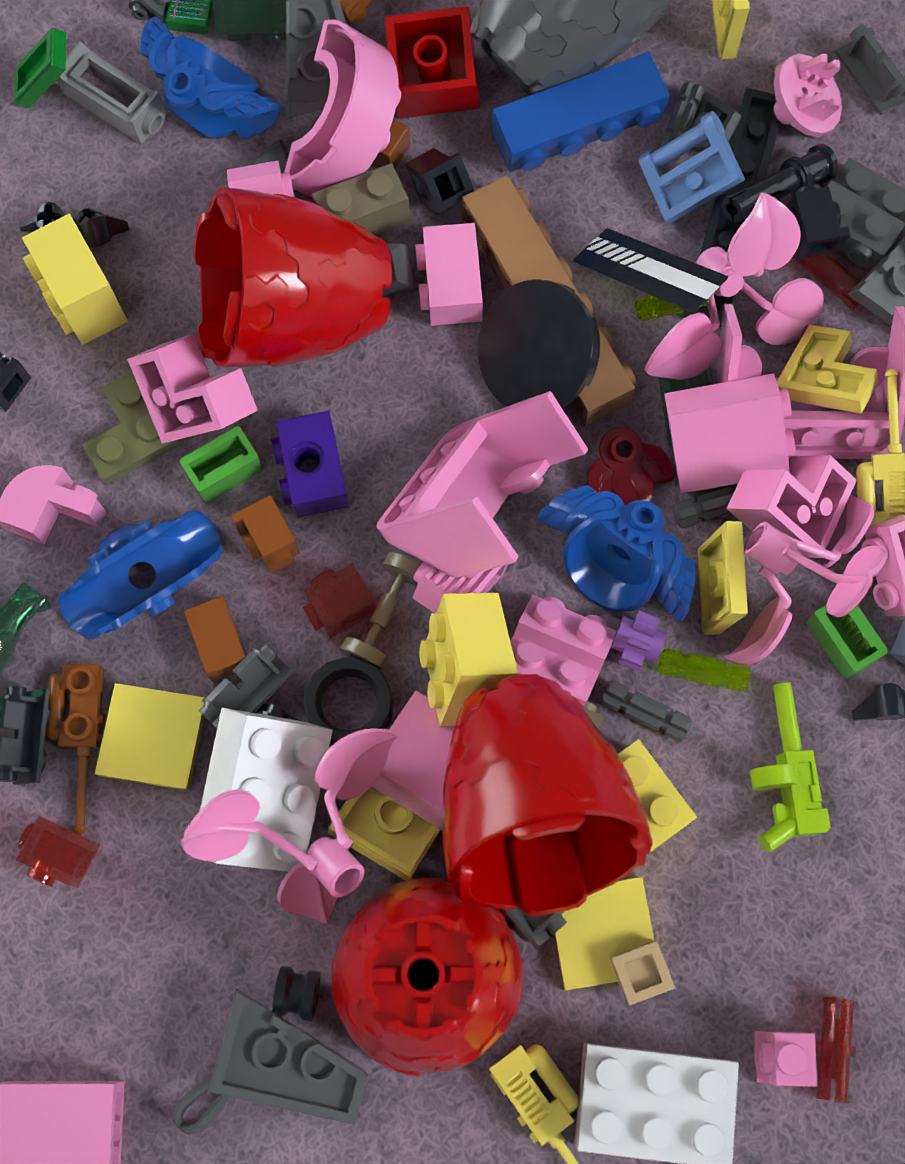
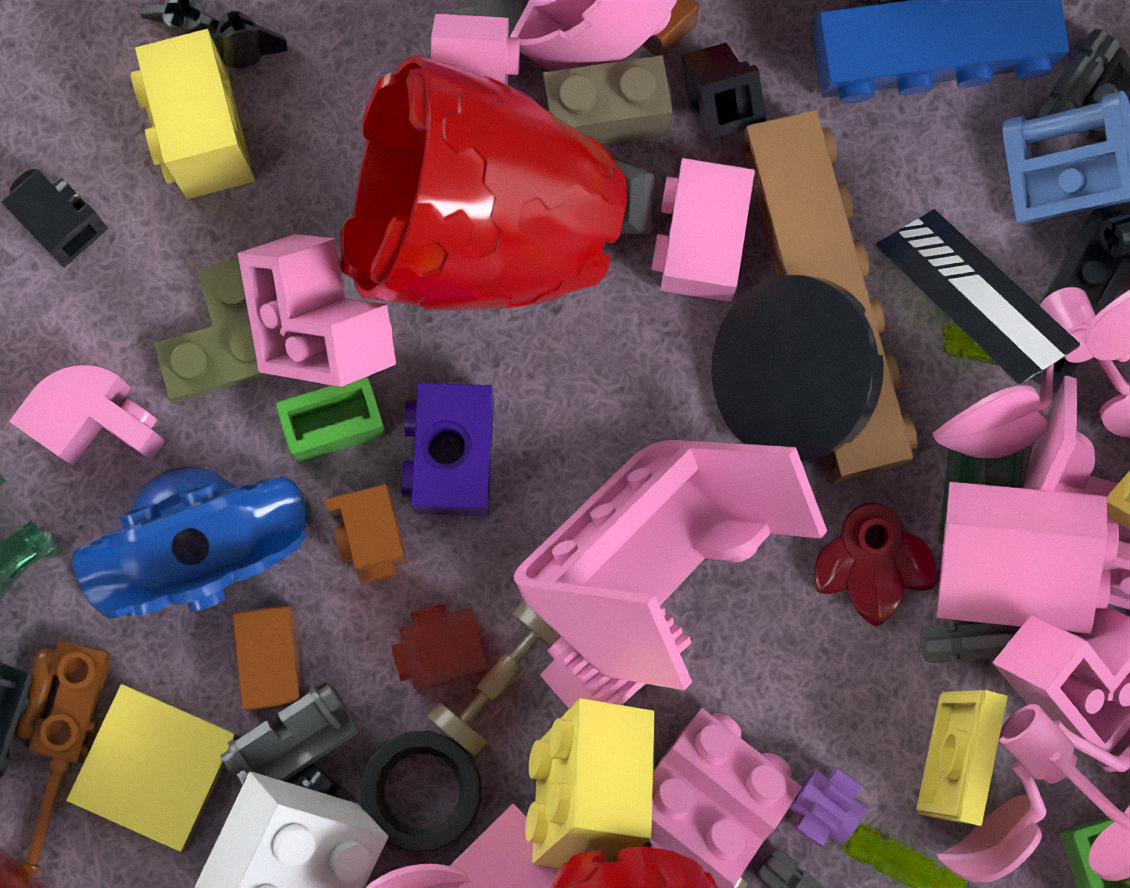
camera: 10 degrees right, 5 degrees up
(620, 552) = (836, 685): blue piece -> none

